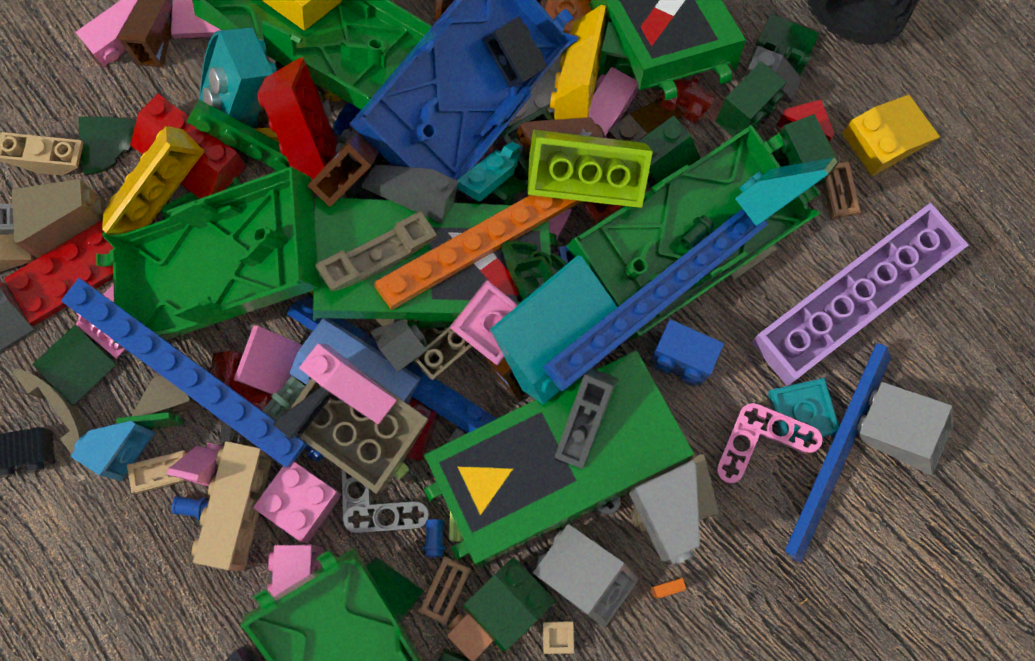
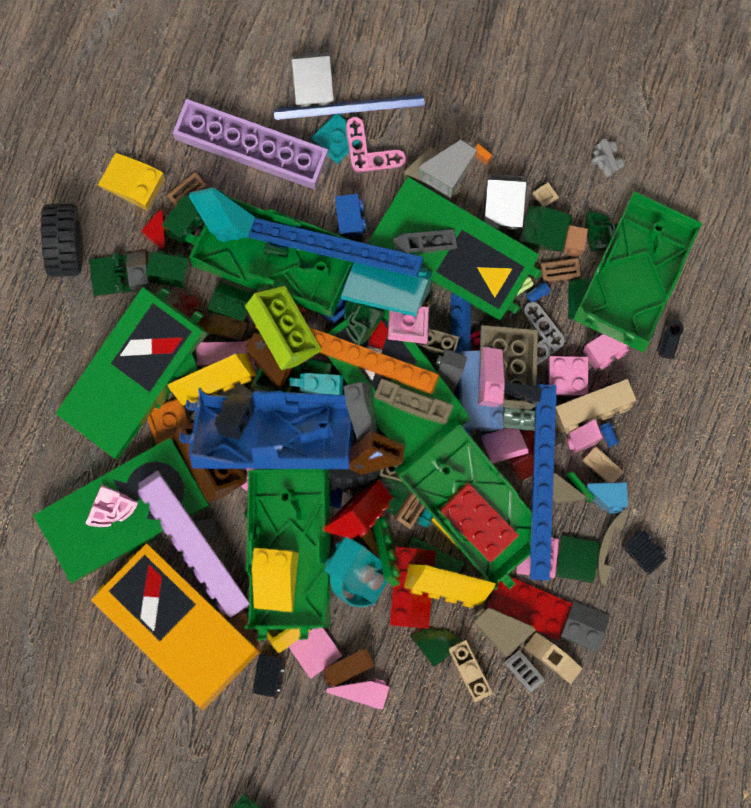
camera: 125 degrees left, 5 degrees up
(189, 257) = (478, 522): none -> red plate

